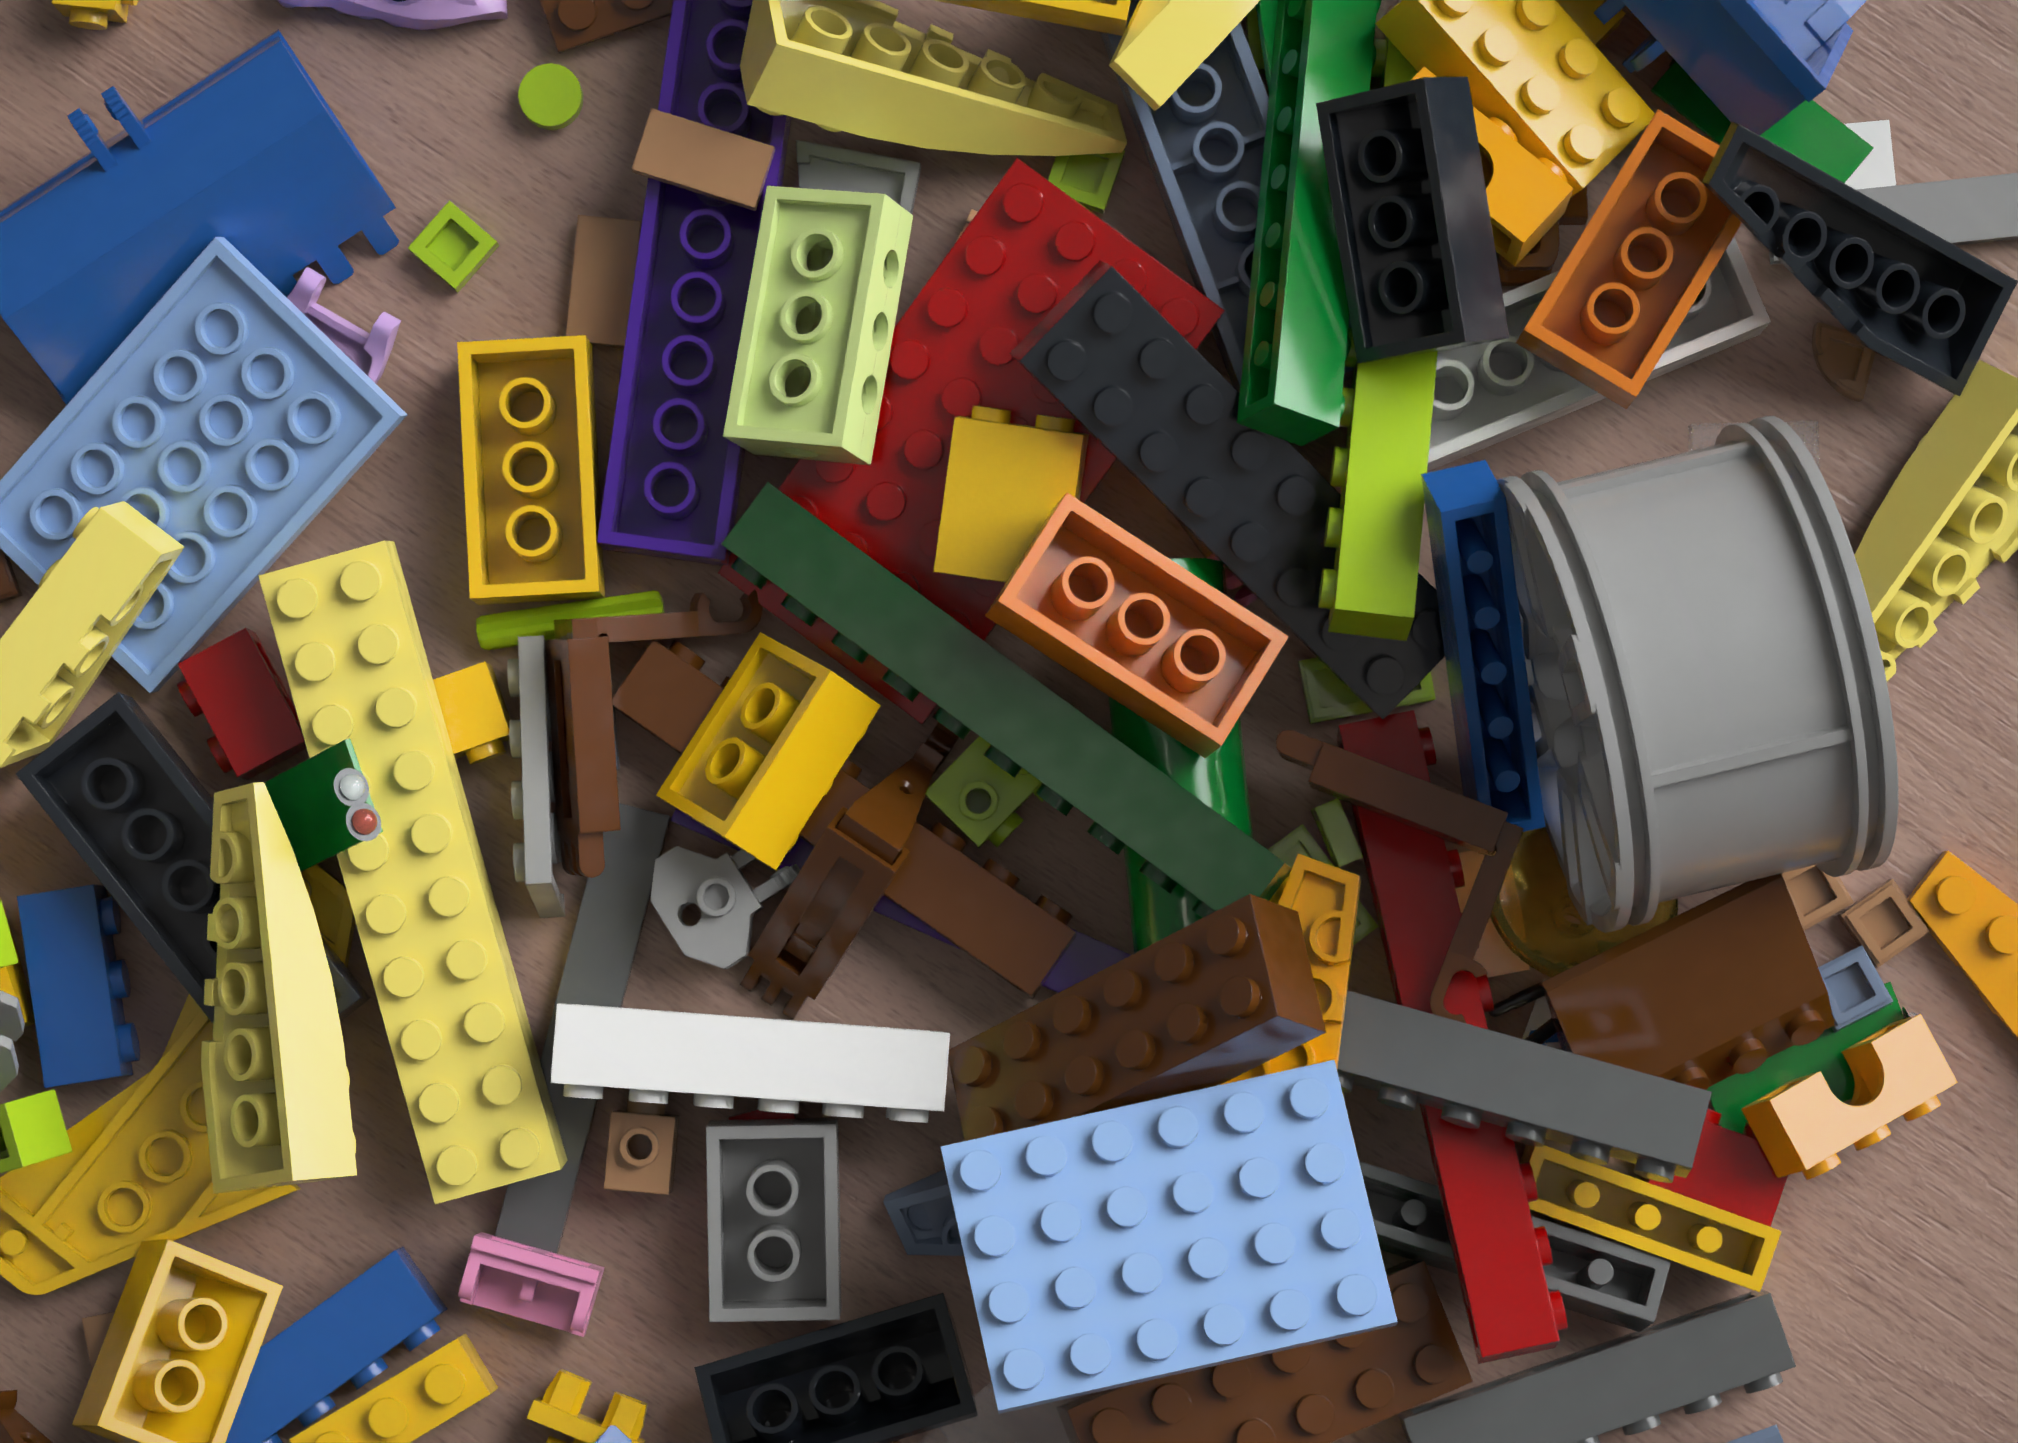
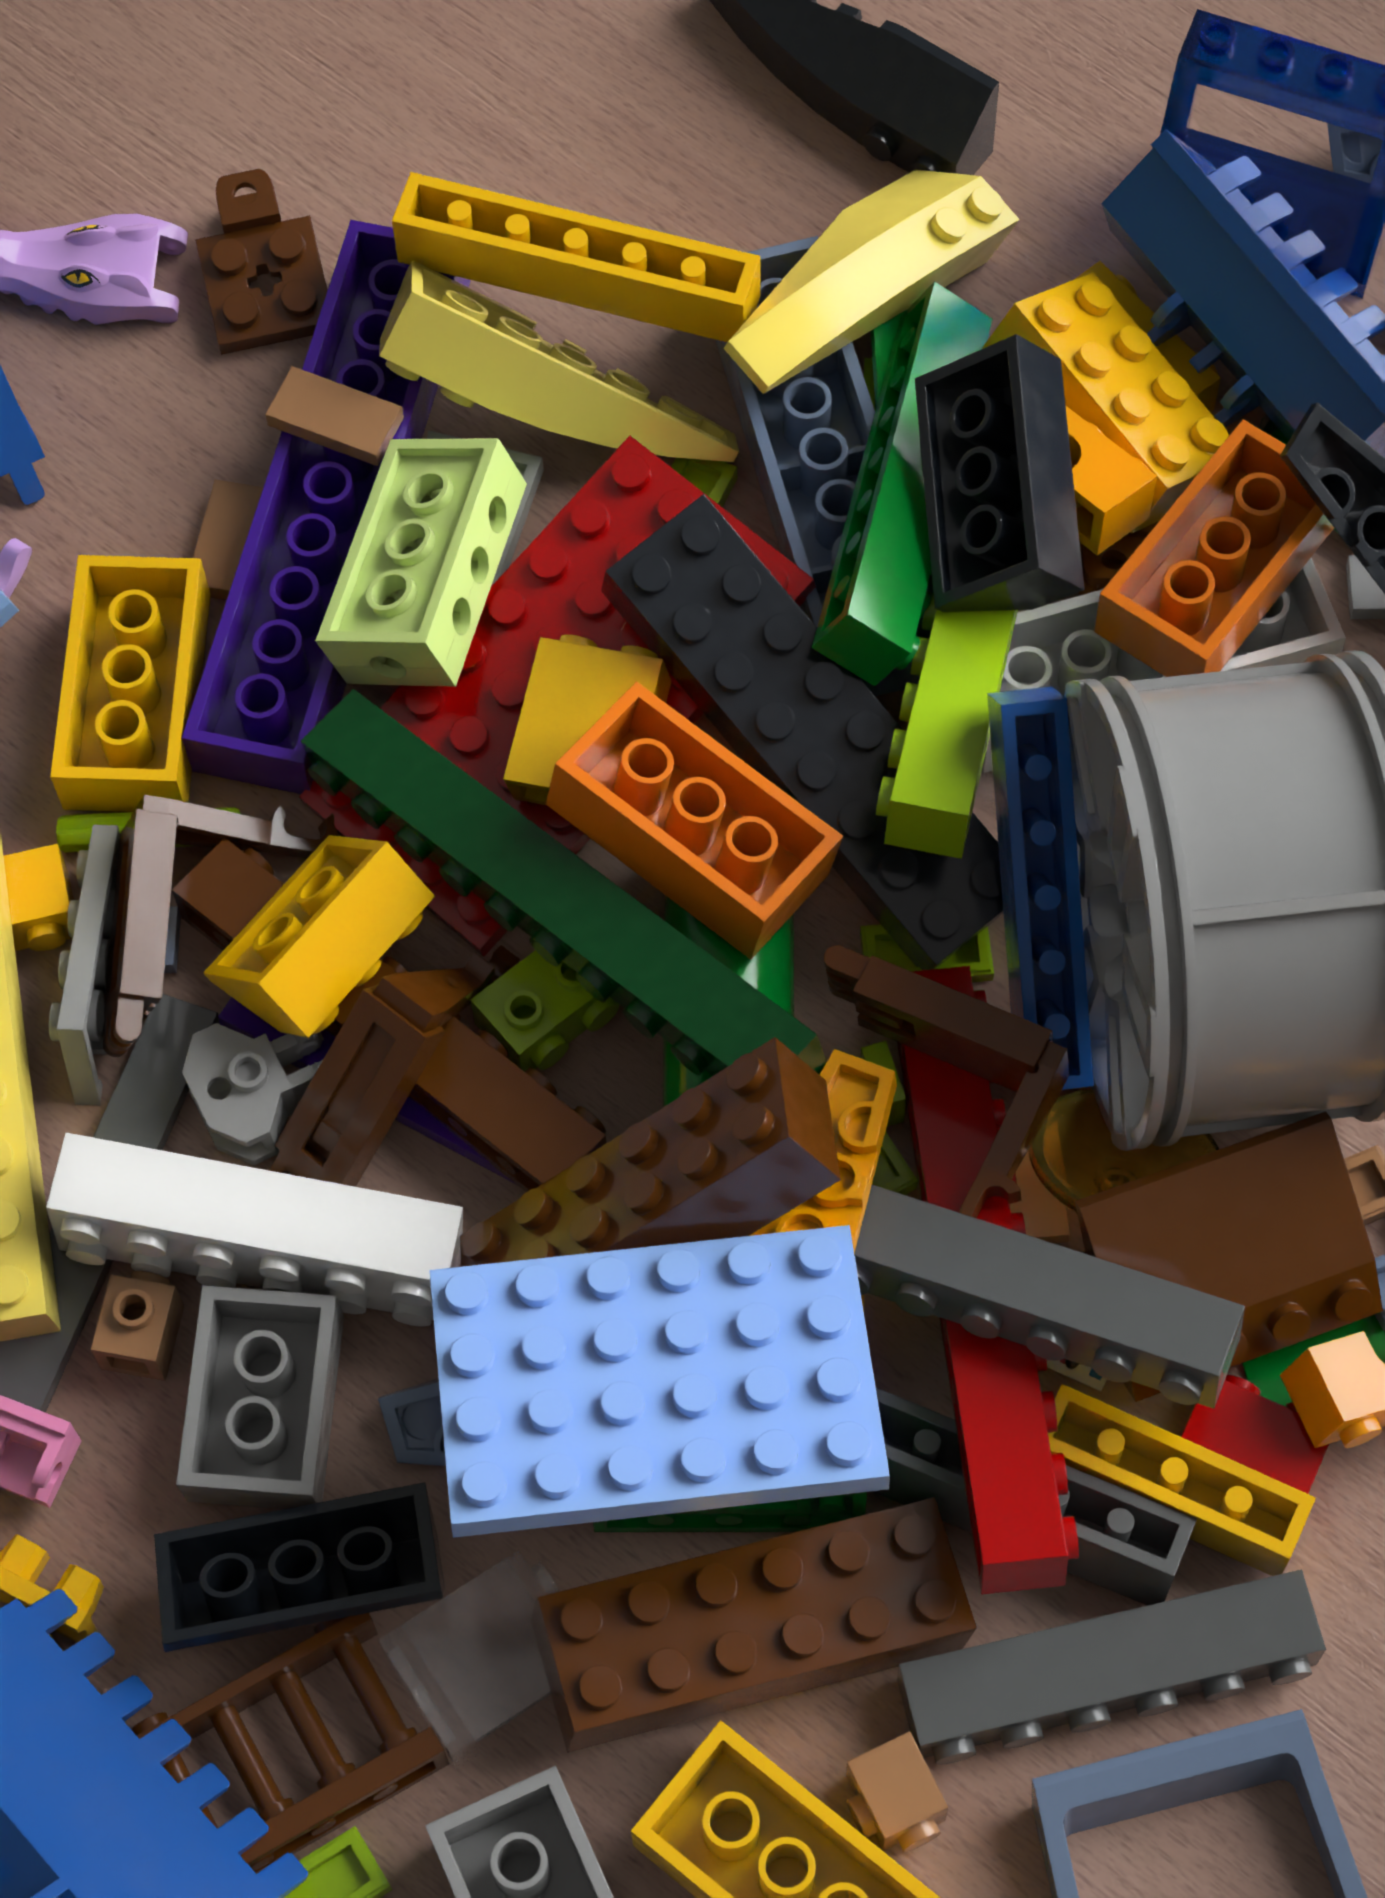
camera: 10 degrees right, 20 degrees down
(453, 246) = (94, 500): lime tile -> none
(550, 96) = (206, 384): lime tile -> none

